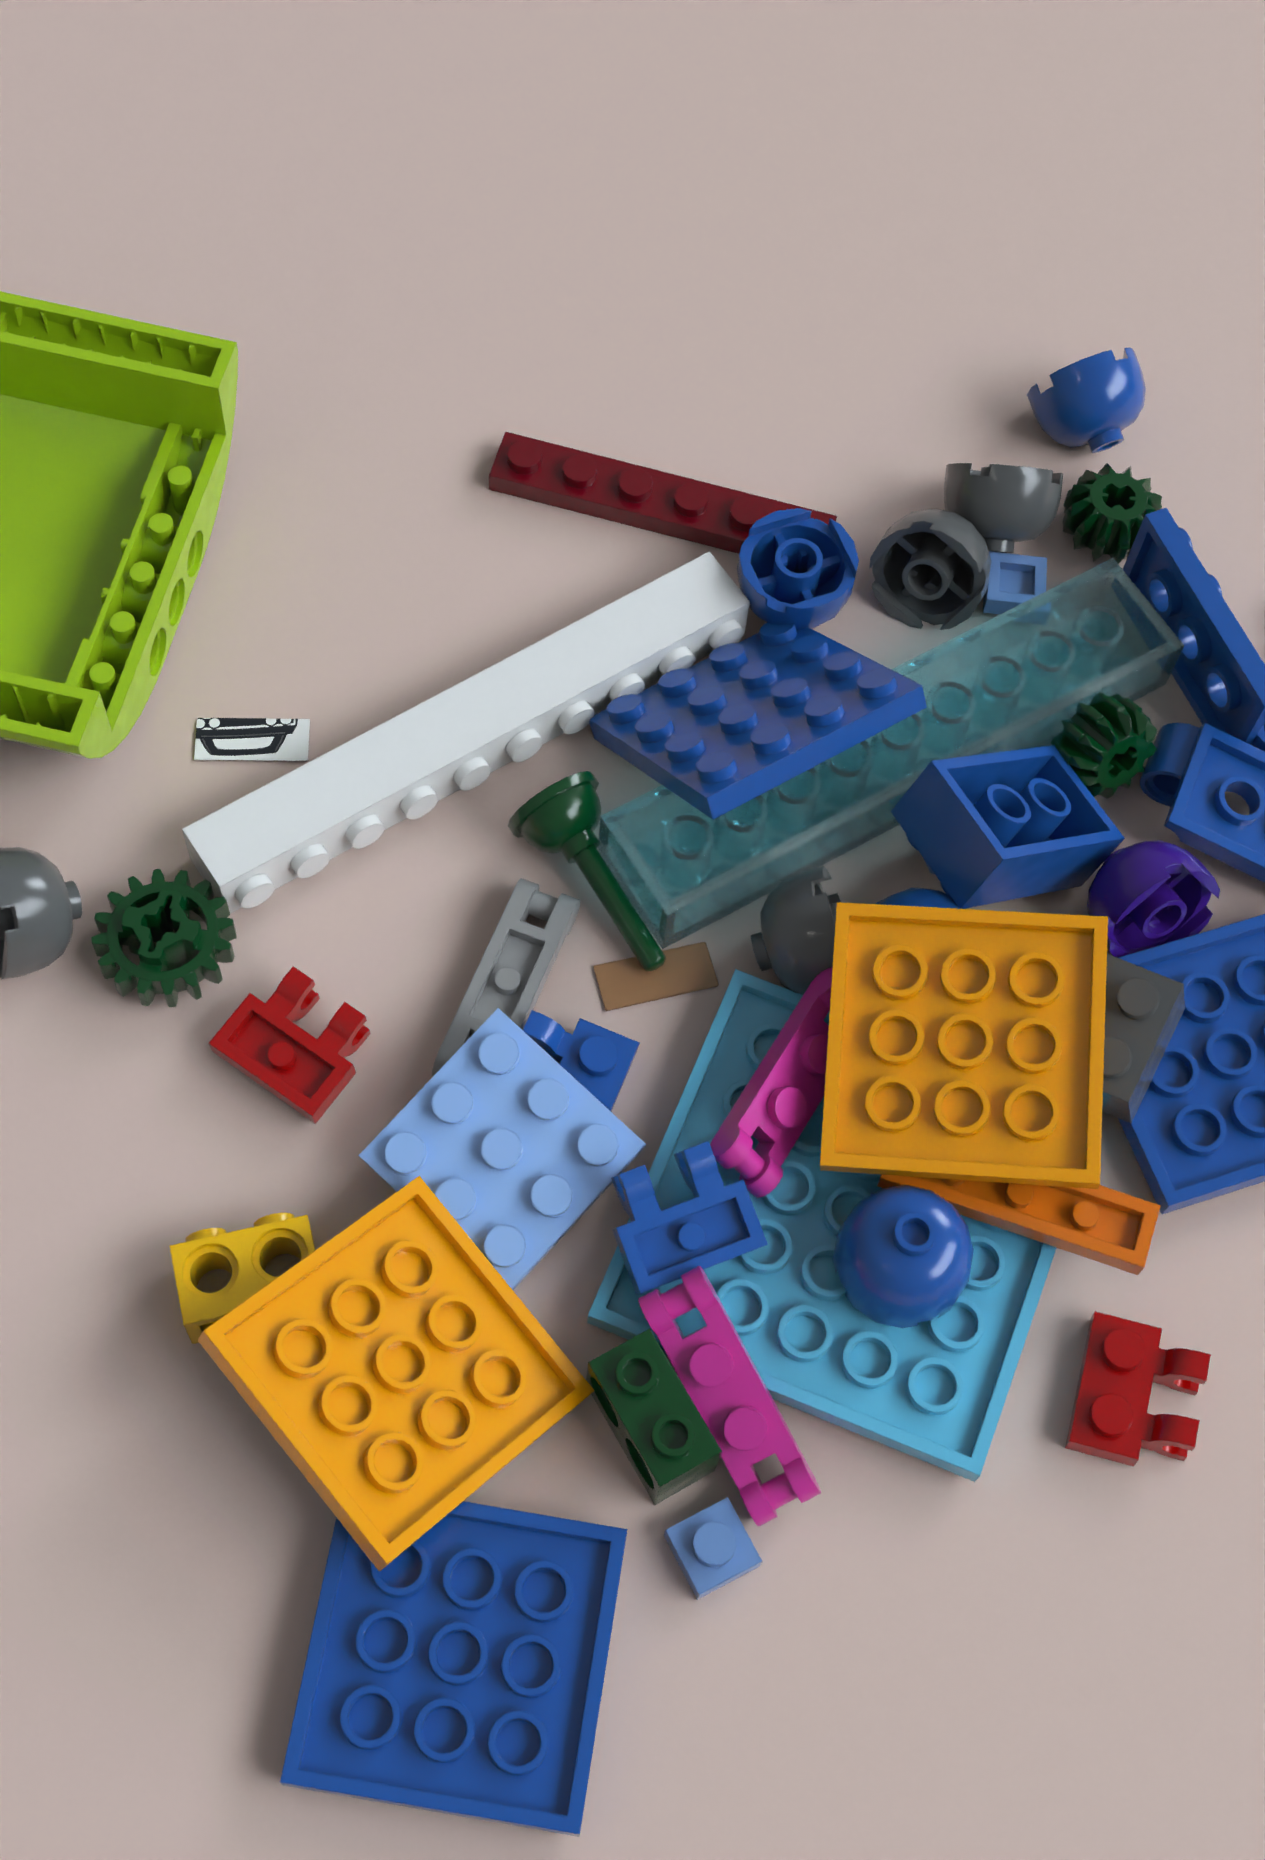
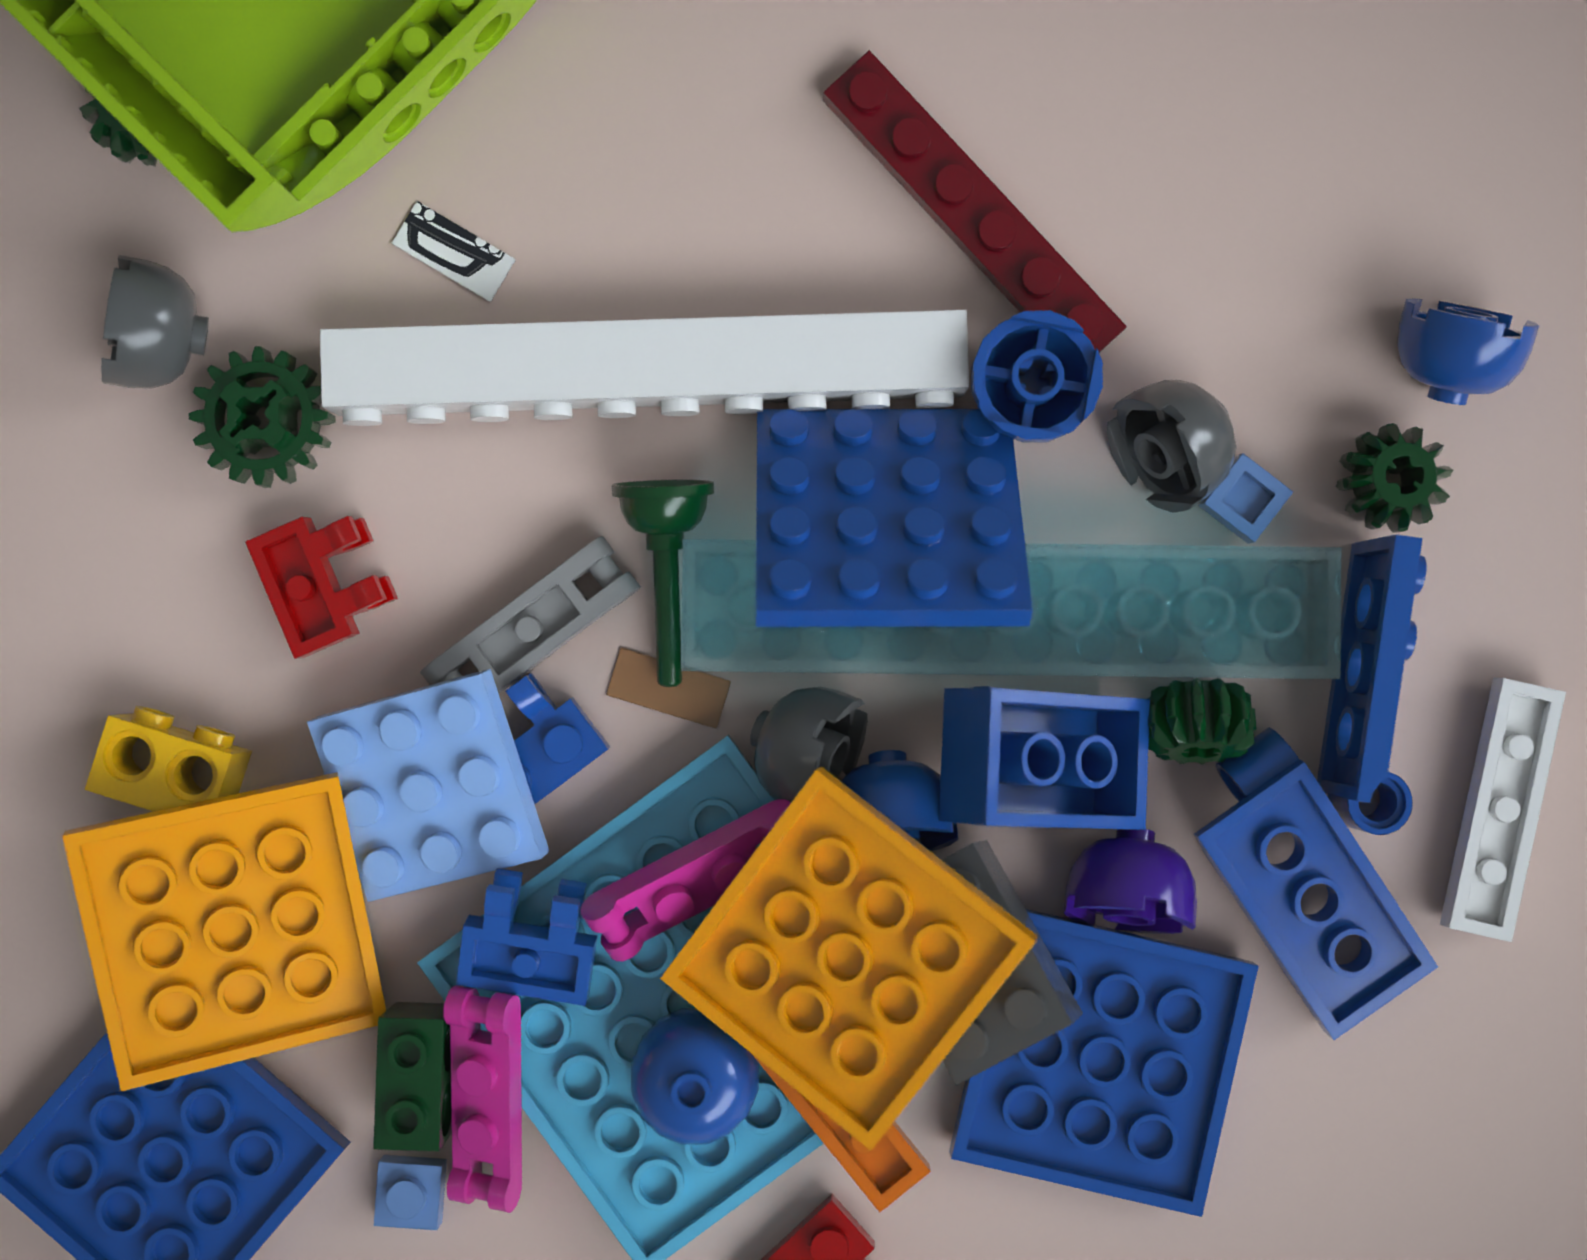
camera: 35 degrees right, 25 degrees up
(1003, 501) = (1286, 413): dark grey cylinder -> none

